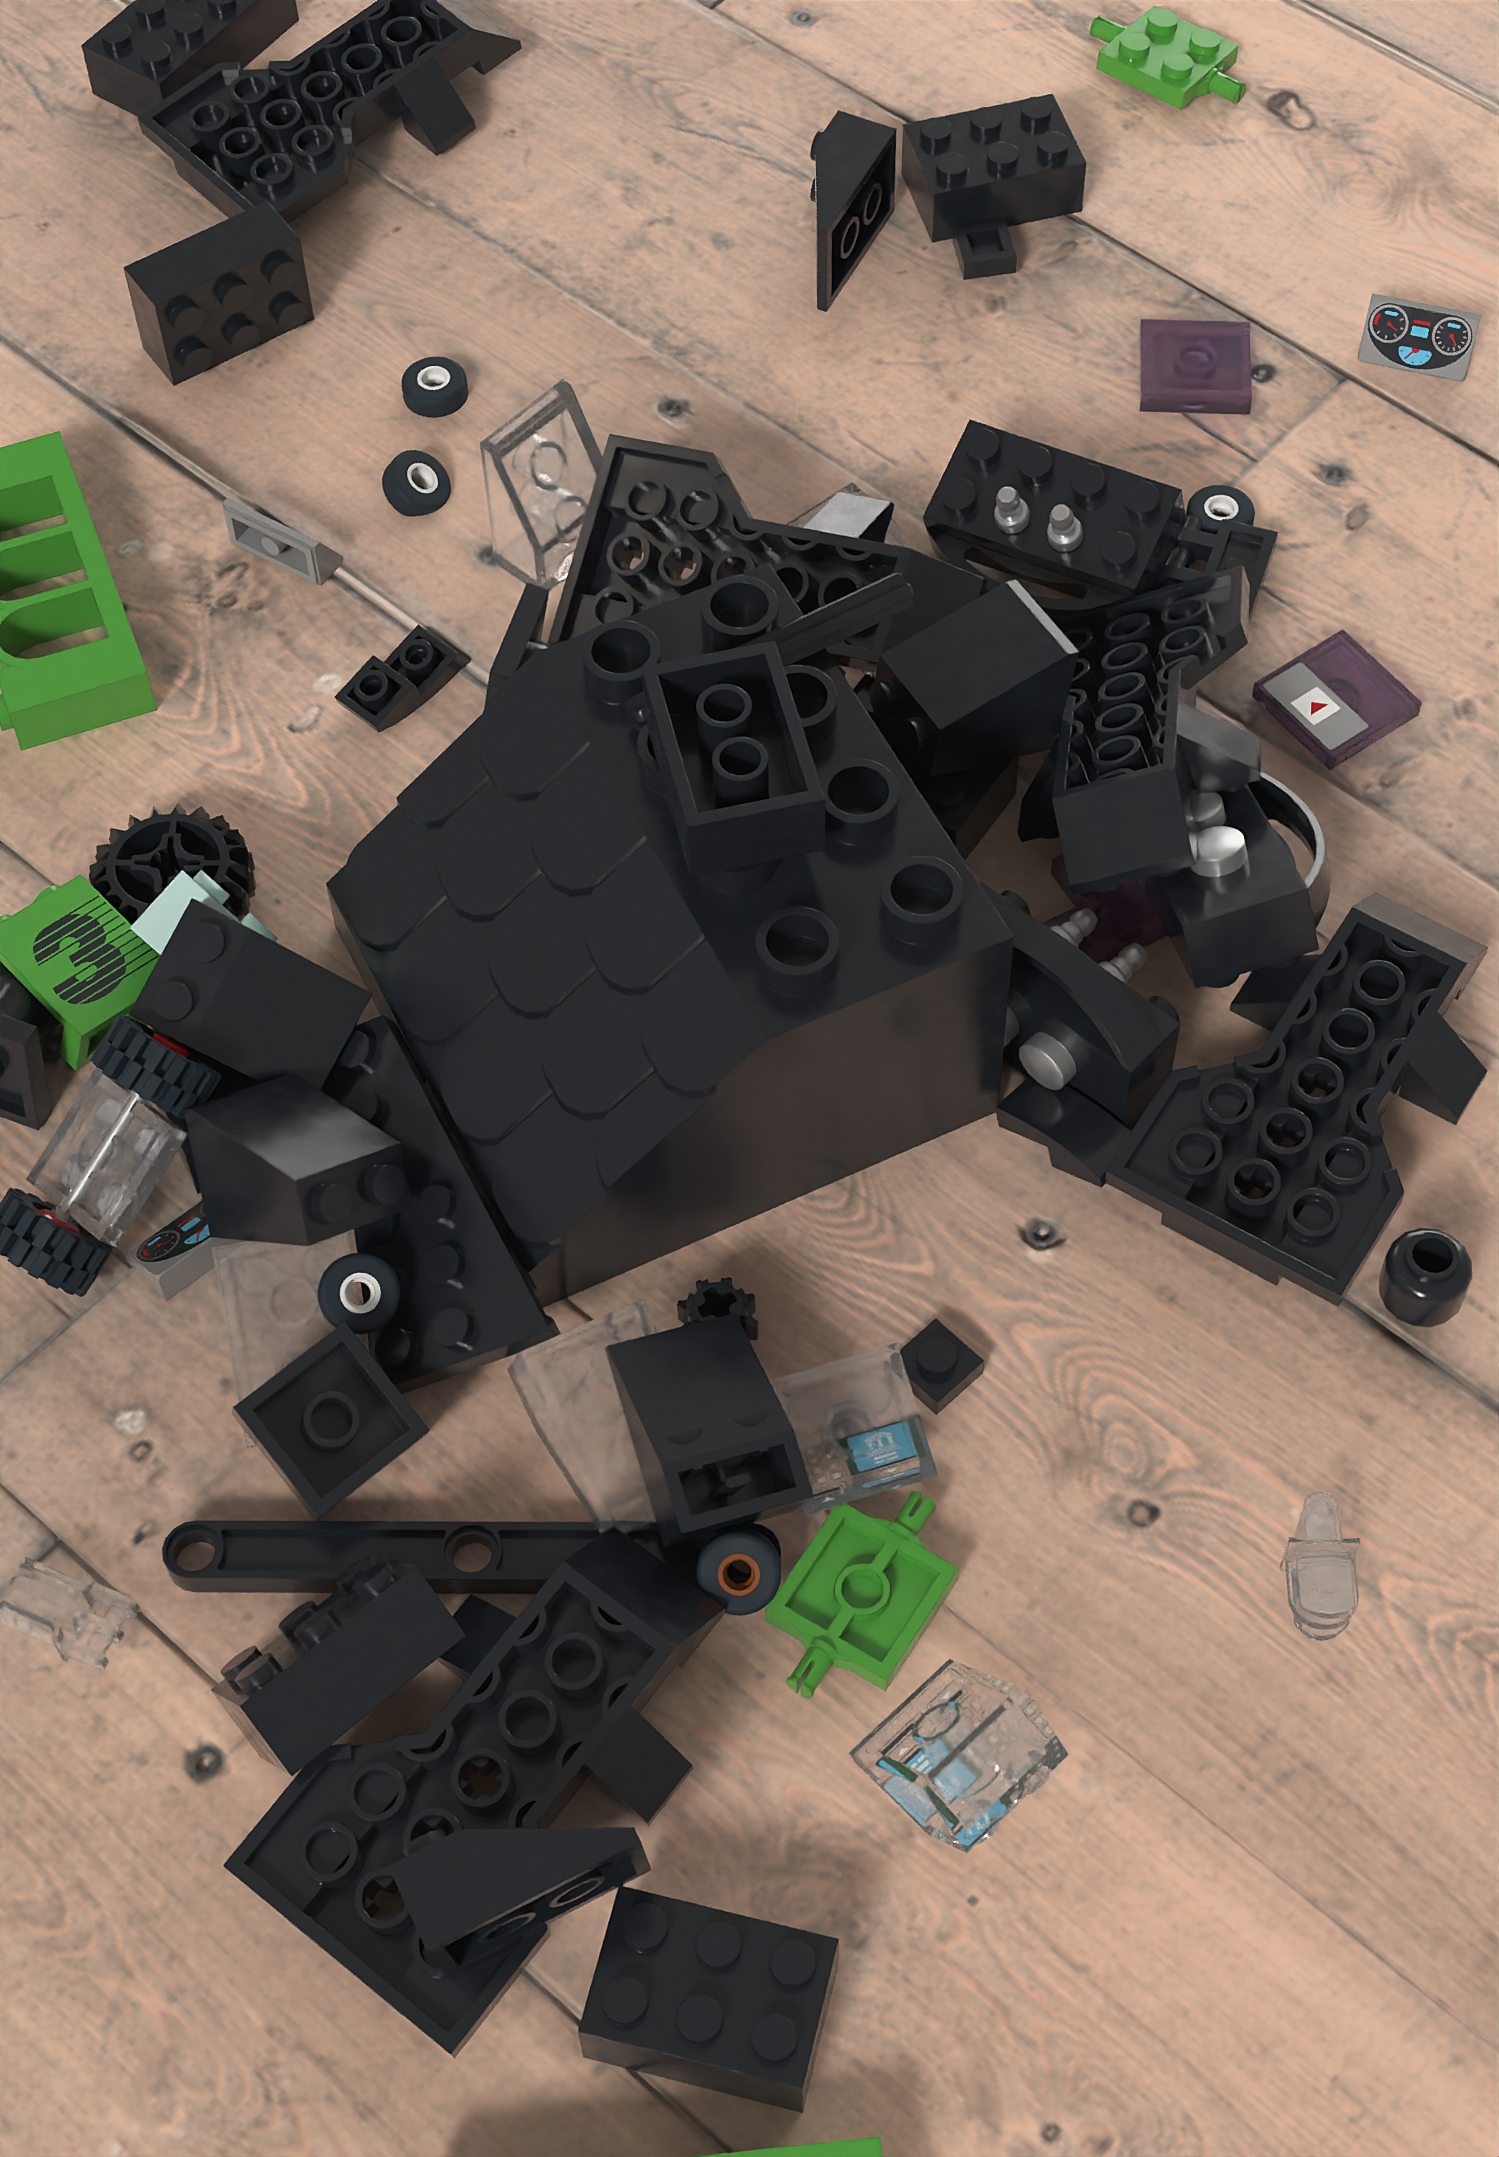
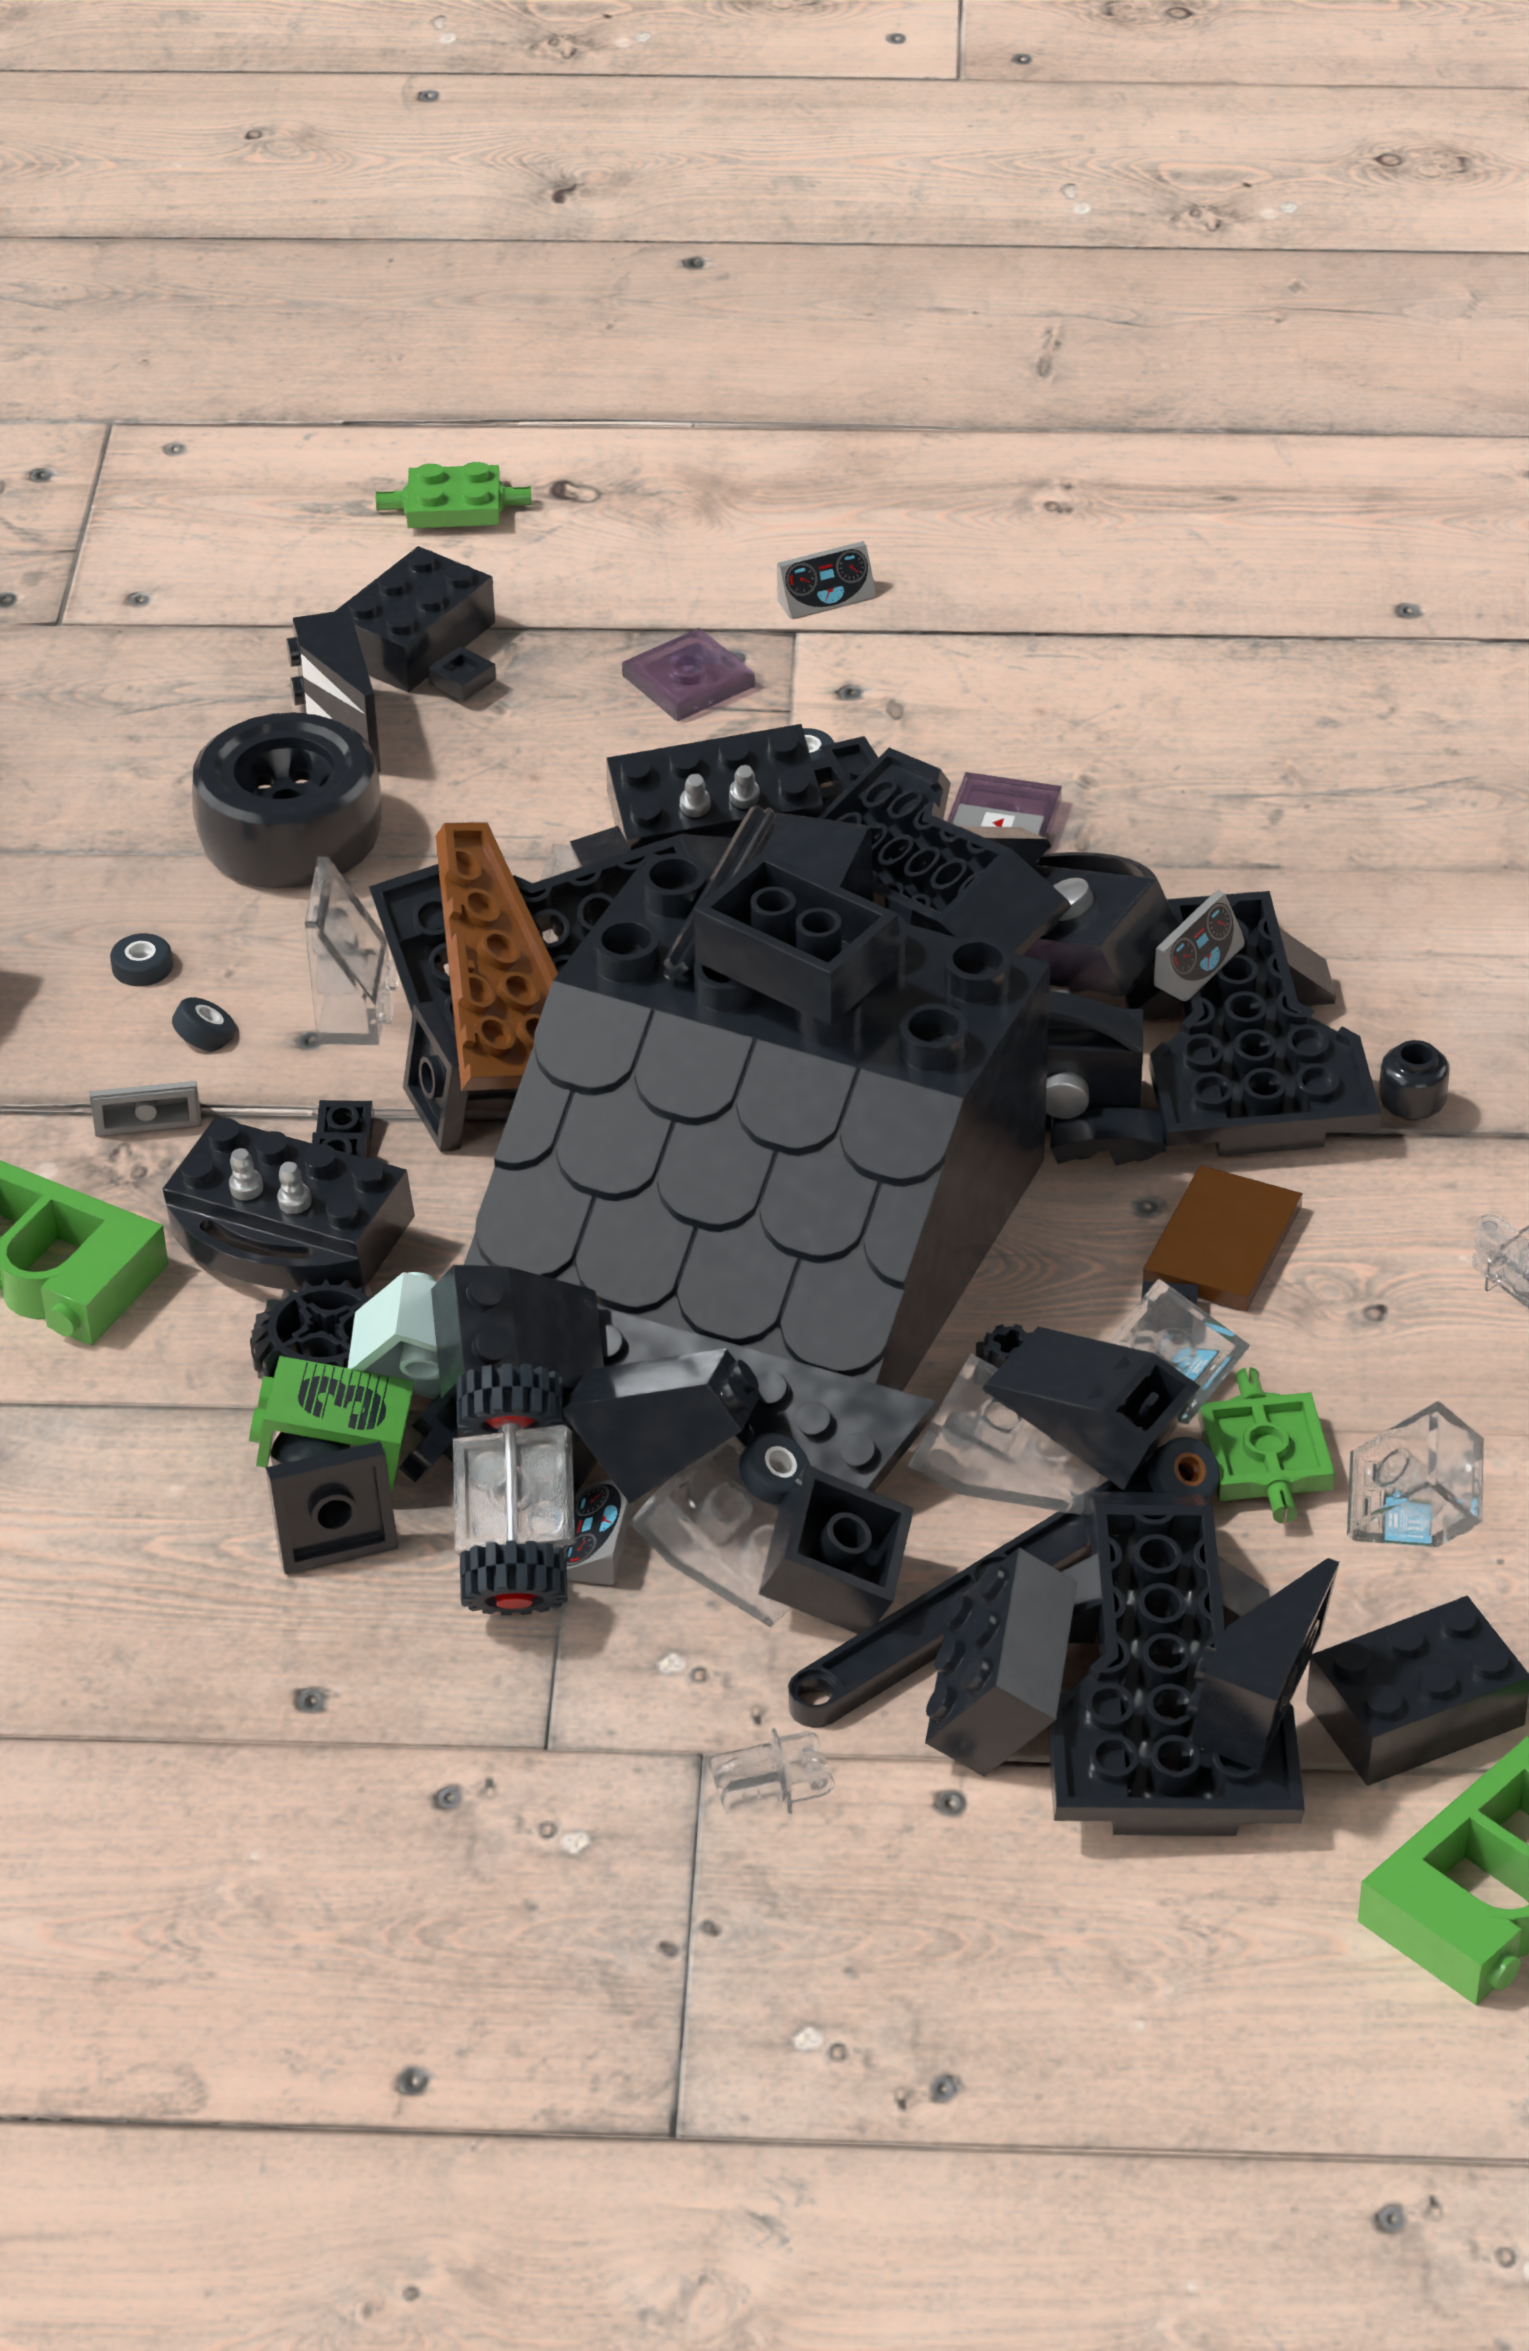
camera: 40 degrees left, 15 degrees down
(259, 723) = (285, 1208): none -> black piece
(647, 546) = (494, 958): none -> dark orange wing
(684, 333) = (281, 830): none -> black wheel
(1070, 1321) = (1224, 1236): none -> reddish brown tile
(1317, 986) = (1198, 948): none -> slope

